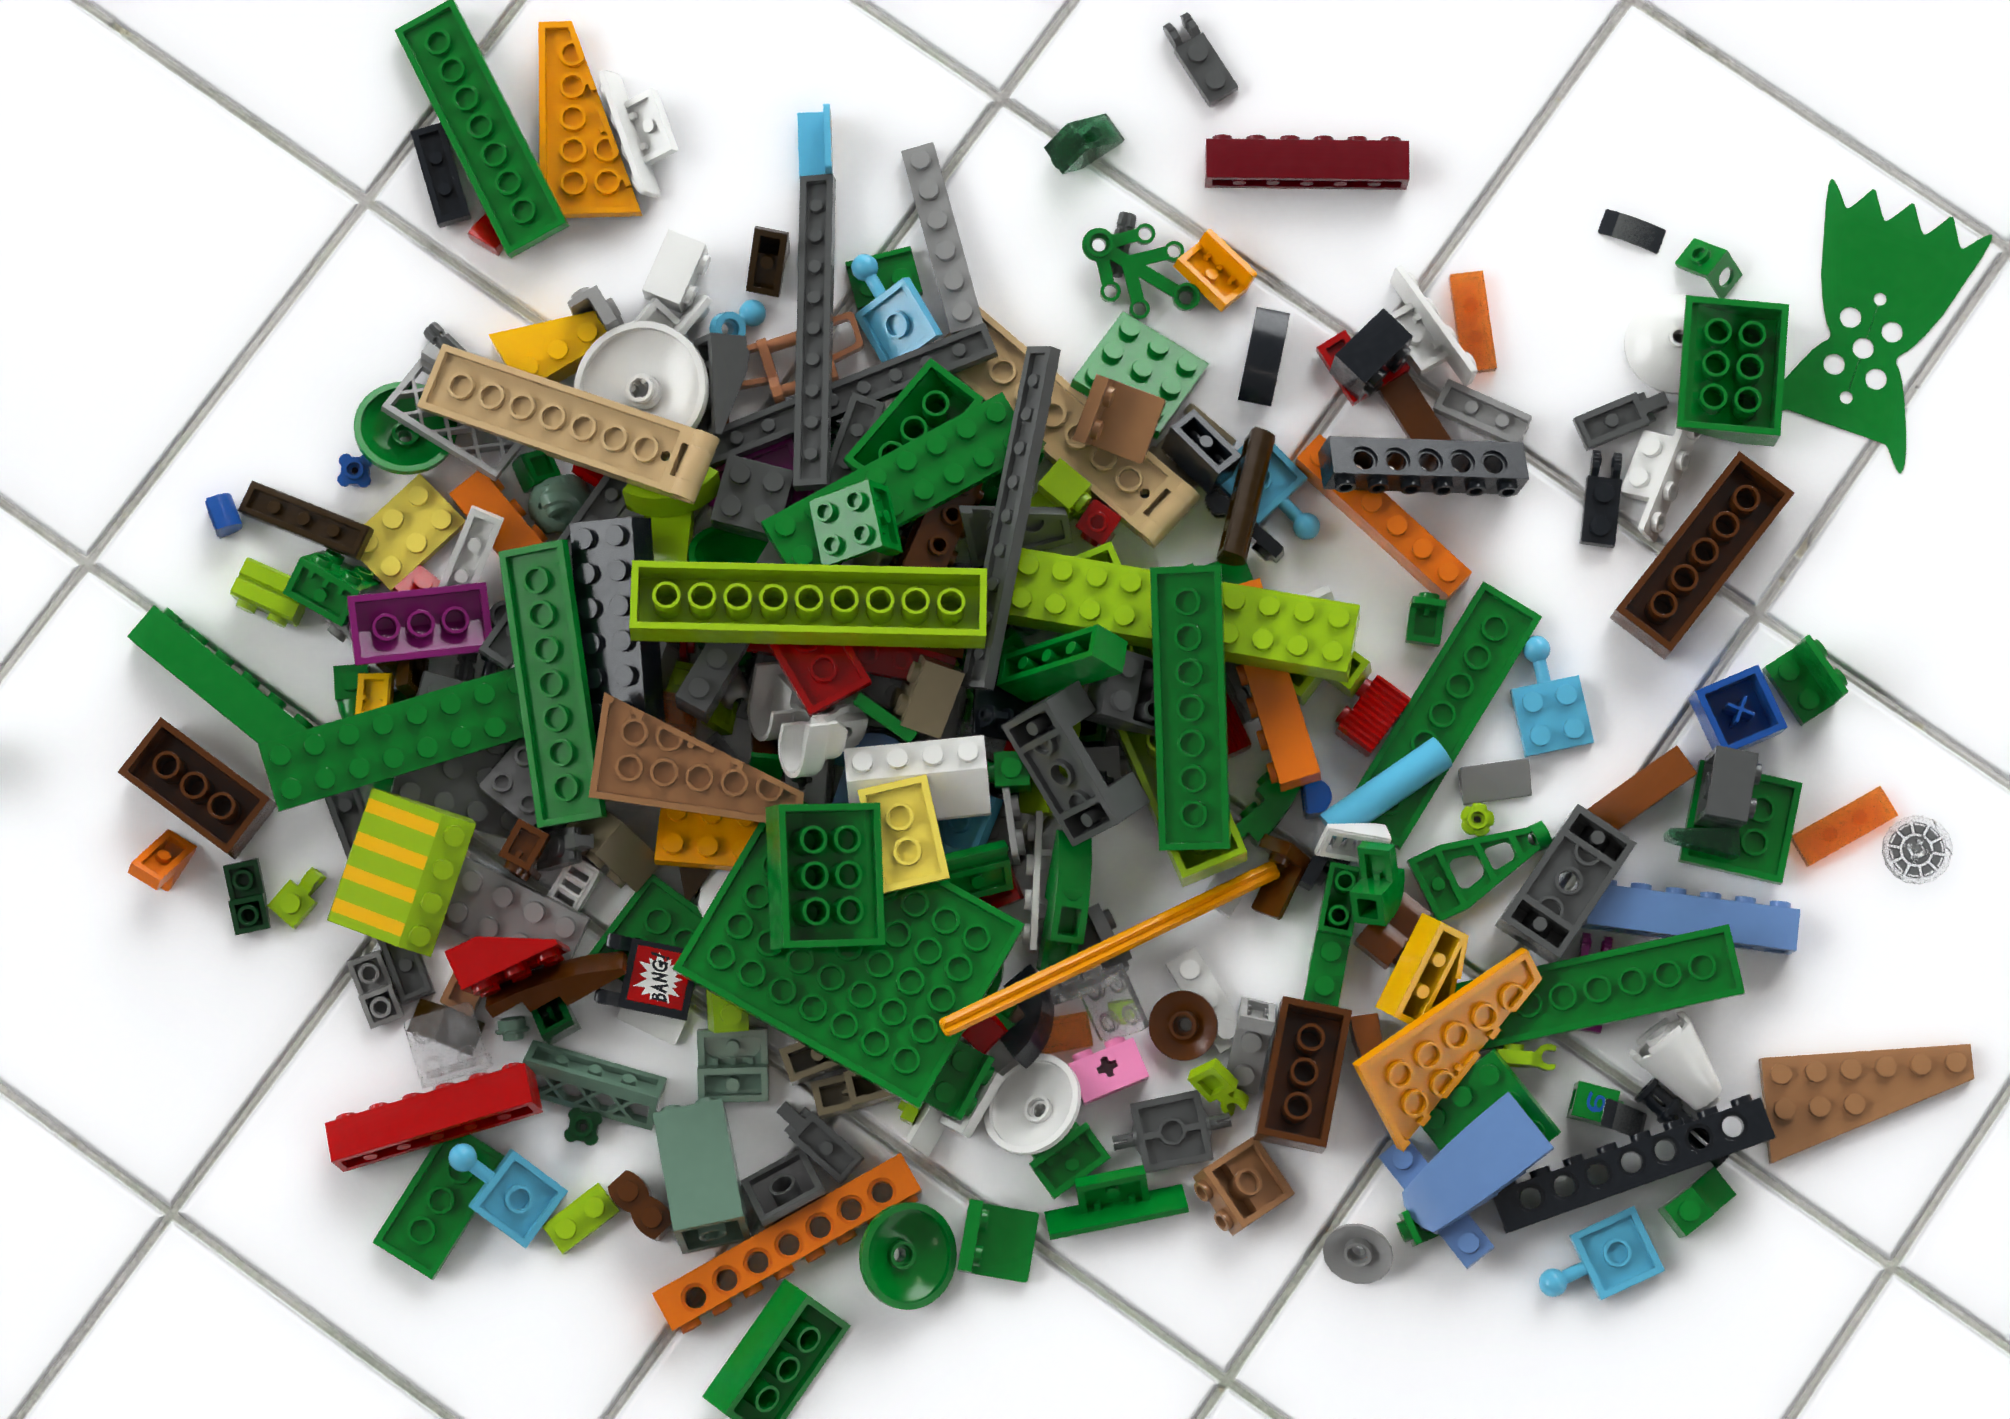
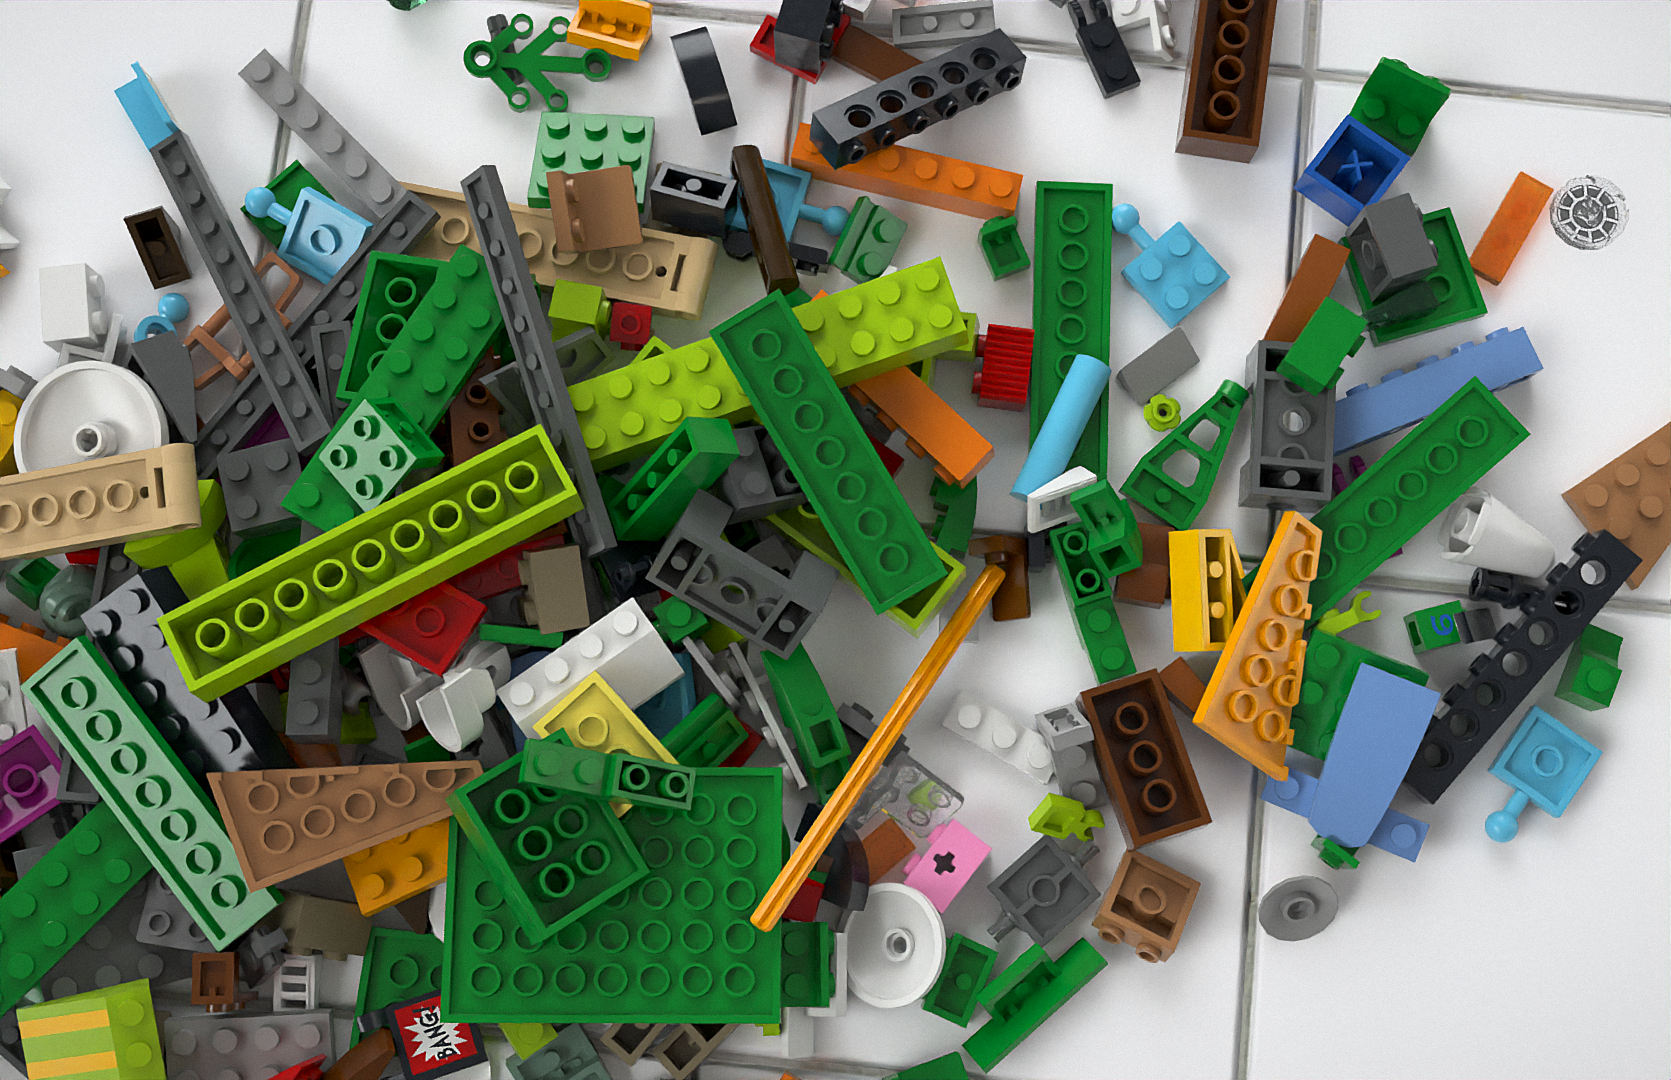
camera: 30 degrees left, 0 degrees up
(893, 857) = (607, 776): none -> green slope
(1166, 1028) = (992, 796): reddish brown dish -> none
(1315, 799) = (996, 479): blue brick -> none
(1320, 557) = (867, 242): none -> green plate
(1620, 836) = (1322, 346): none -> green brick

